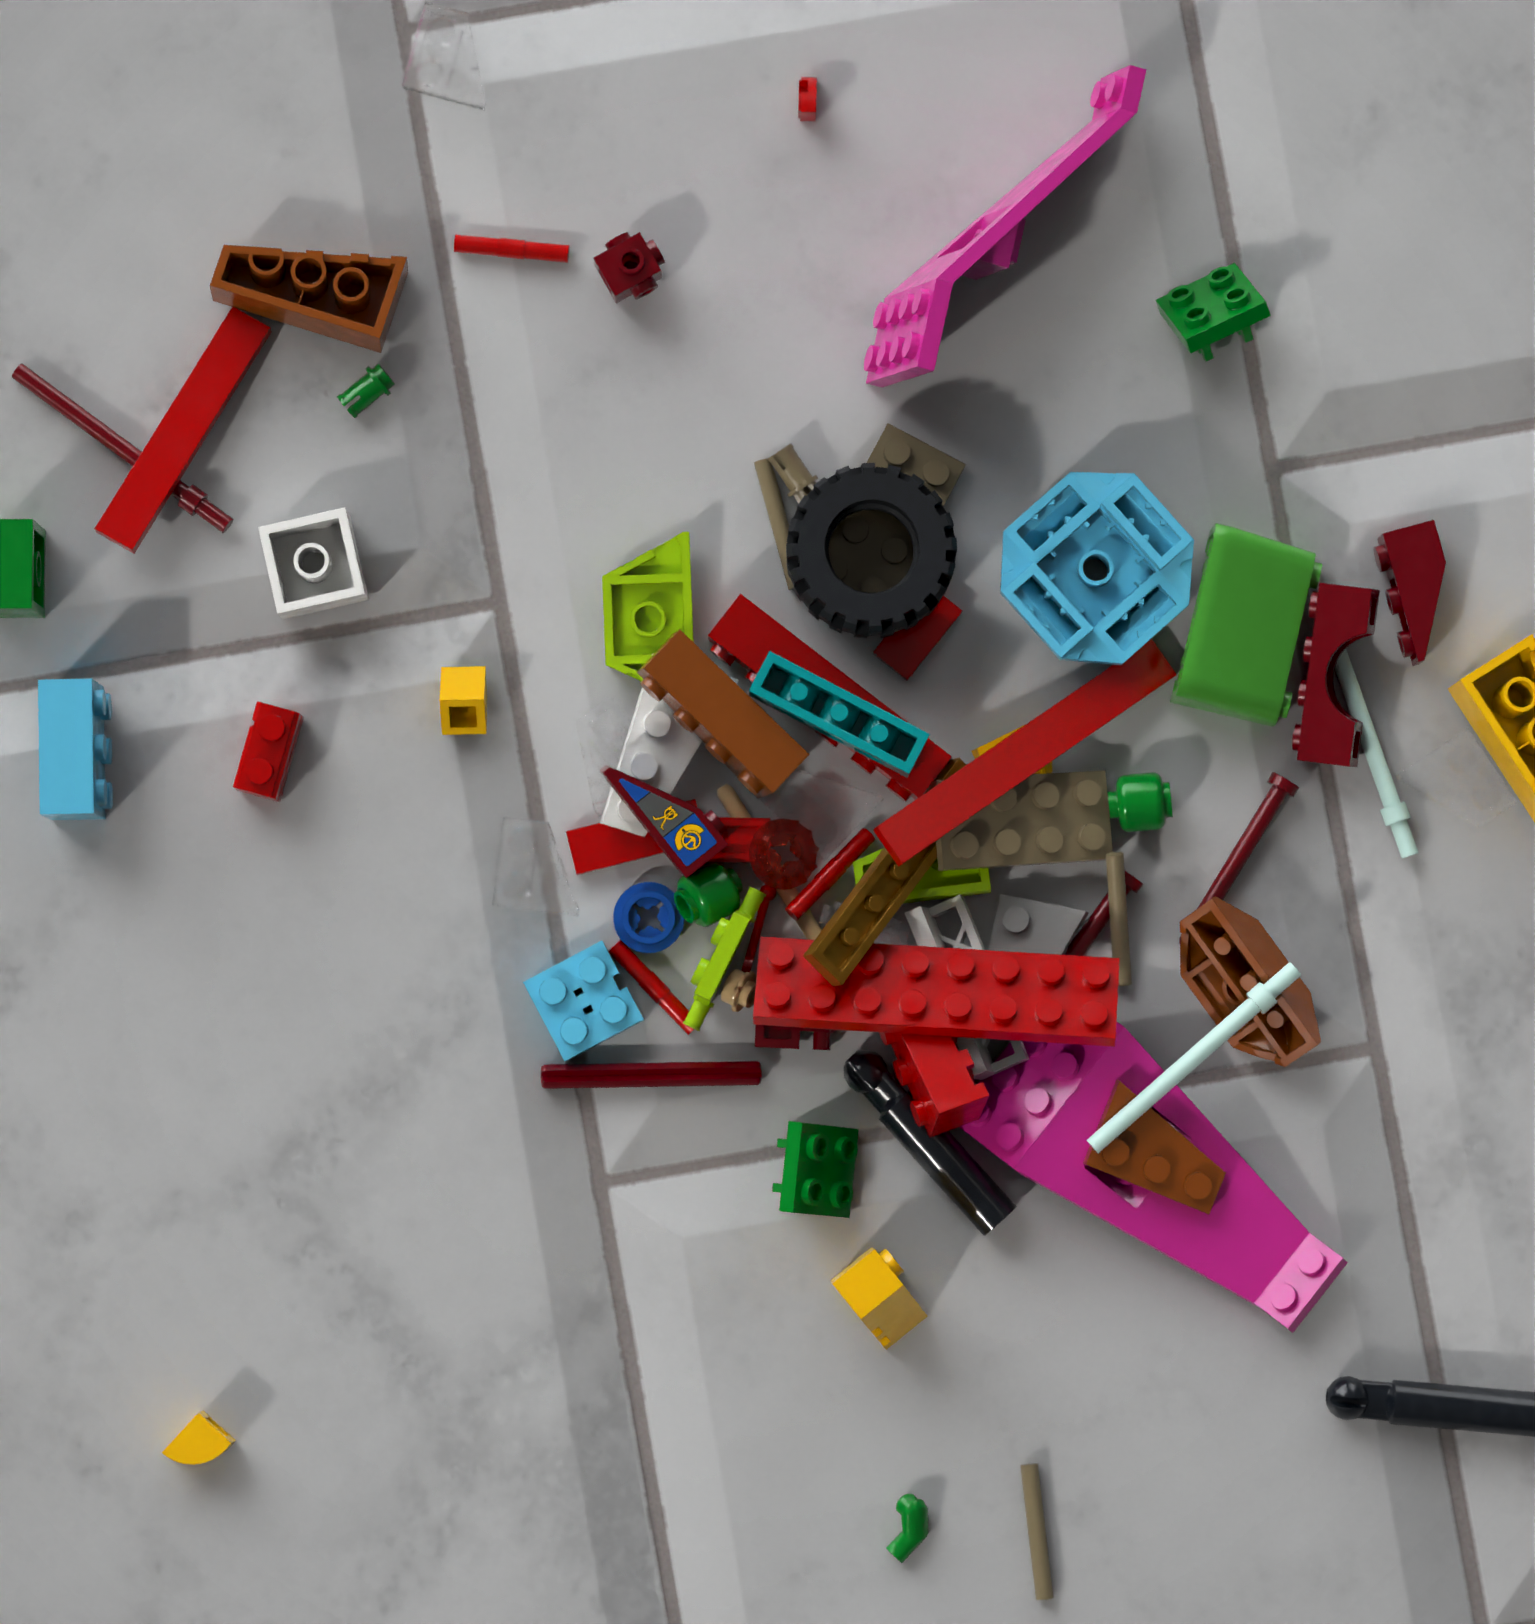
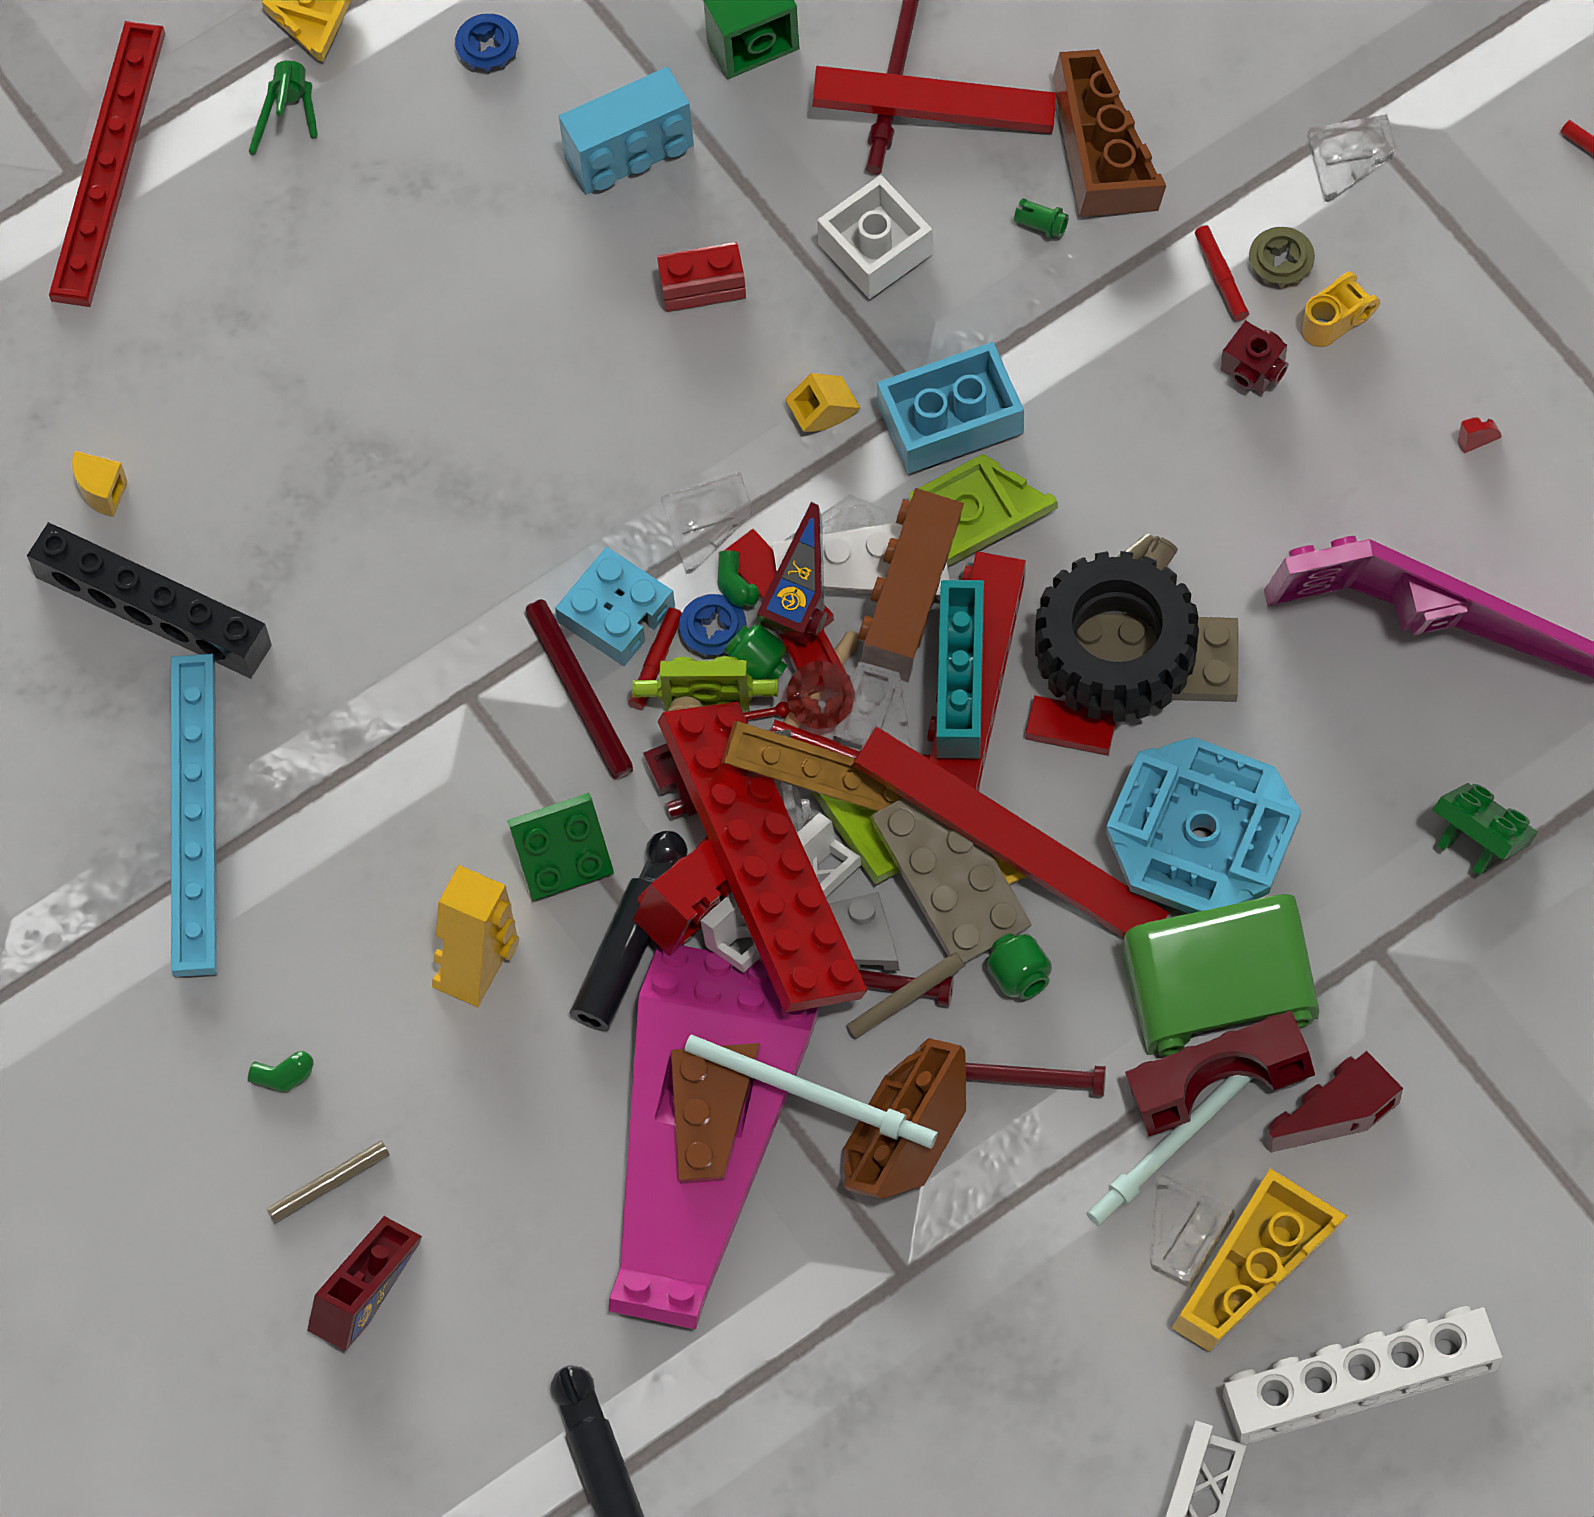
camera: 70 degrees right, 20 degrees down
(356, 1447) = (149, 600): none -> black brick
(529, 162) = (1276, 241): none -> olive gear
(538, 582) = (950, 407): none -> medium azure brick
(604, 1498) = (193, 816): none -> medium azure plate
(610, 154) = (1342, 305): none -> yellow piece
(617, 881) = (730, 582): none -> green arm
(1155, 1541) = (361, 1283): none -> dark red slope

